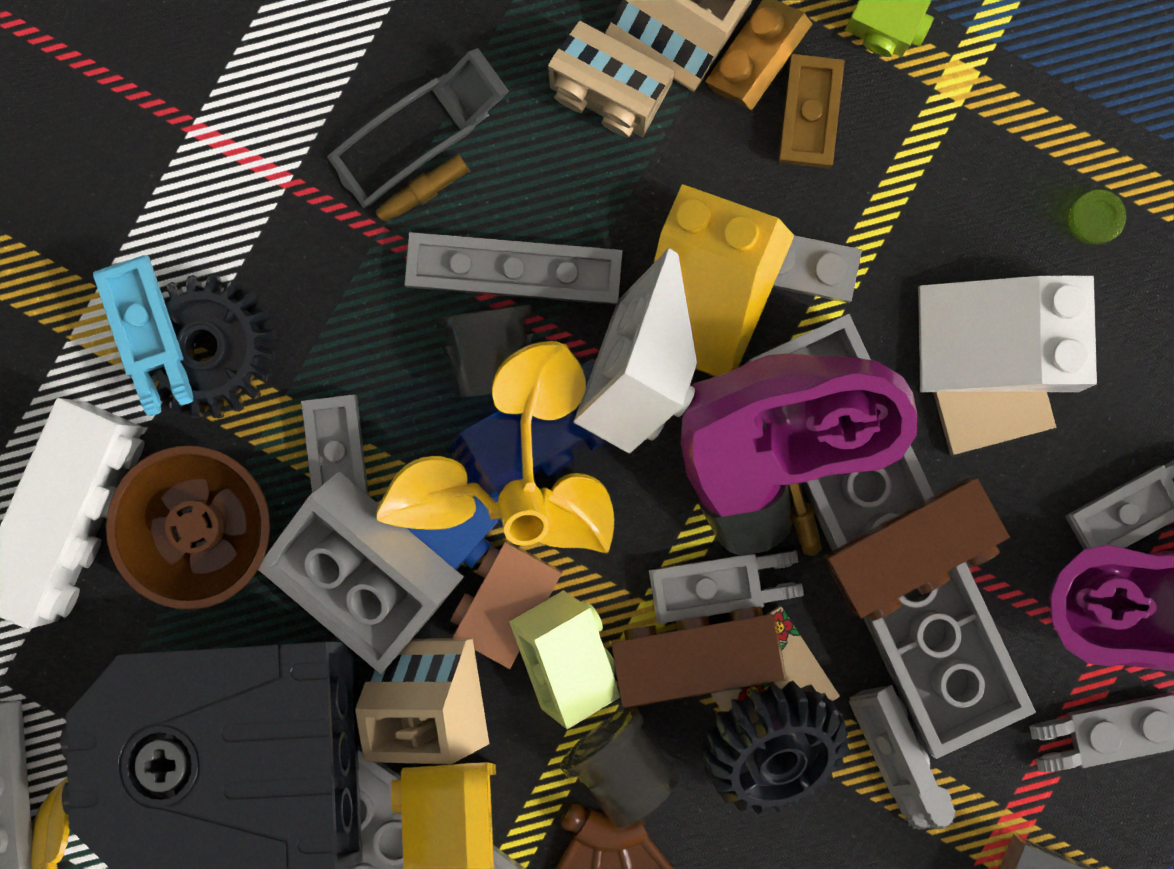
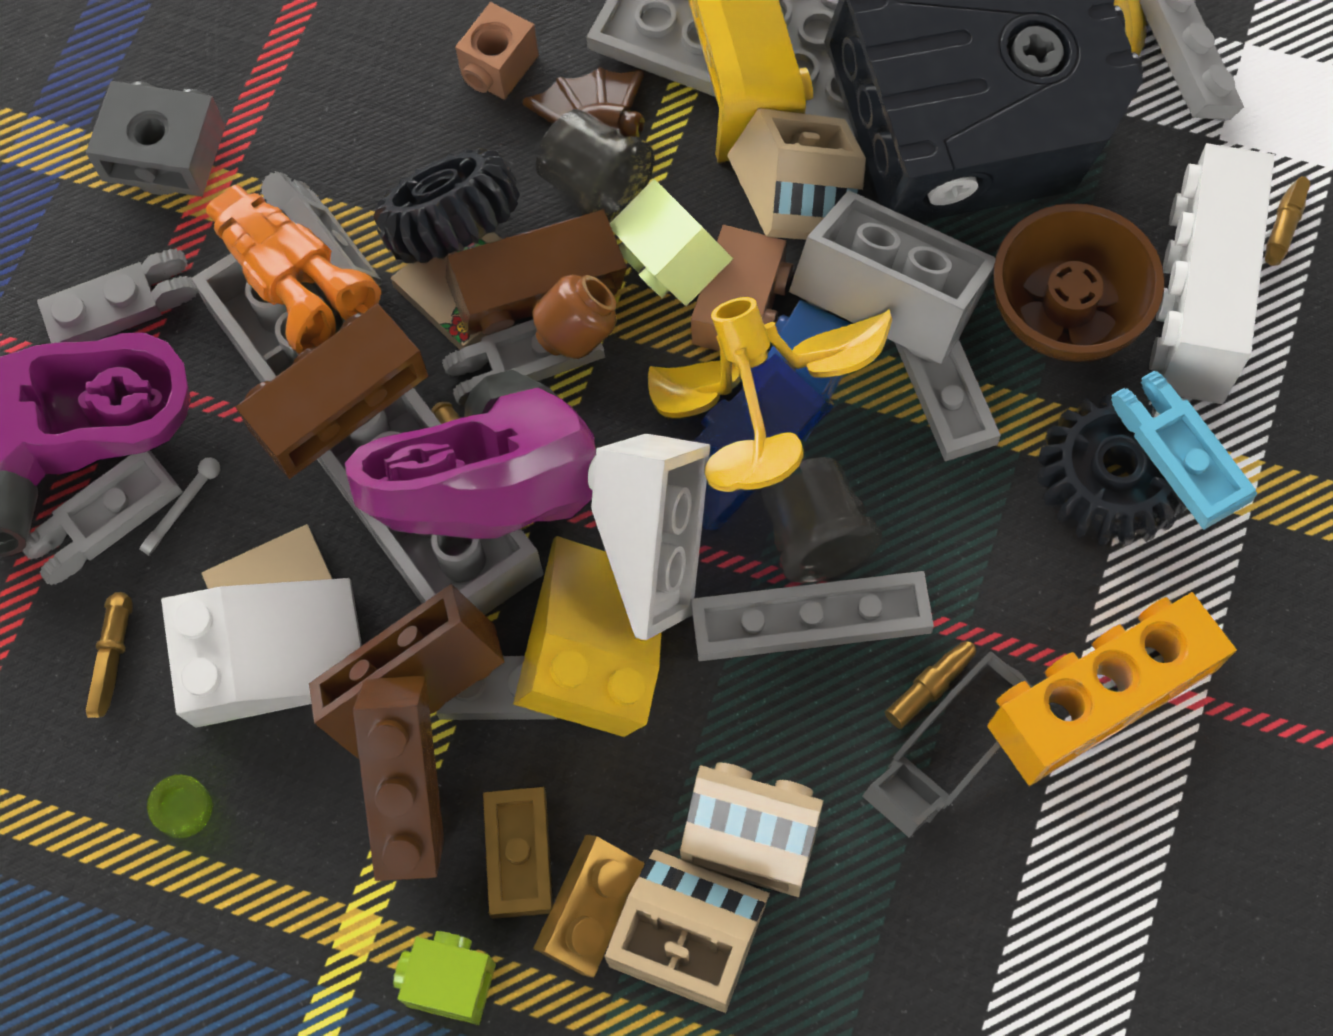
camera: 170 degrees right, 20 degrees down
(192, 157) = (1042, 743): none -> light orange brick
(672, 592) = (574, 316): none -> dark orange head
(885, 273) = (438, 639): none -> reddish brown brick
(905, 175) = (399, 777): none -> reddish brown brick
(949, 701) = (282, 255): none -> orange piece
(1039, 534) = (208, 469): none -> light grey hinge
(1145, 377) = (110, 646): none -> pearl gold piece

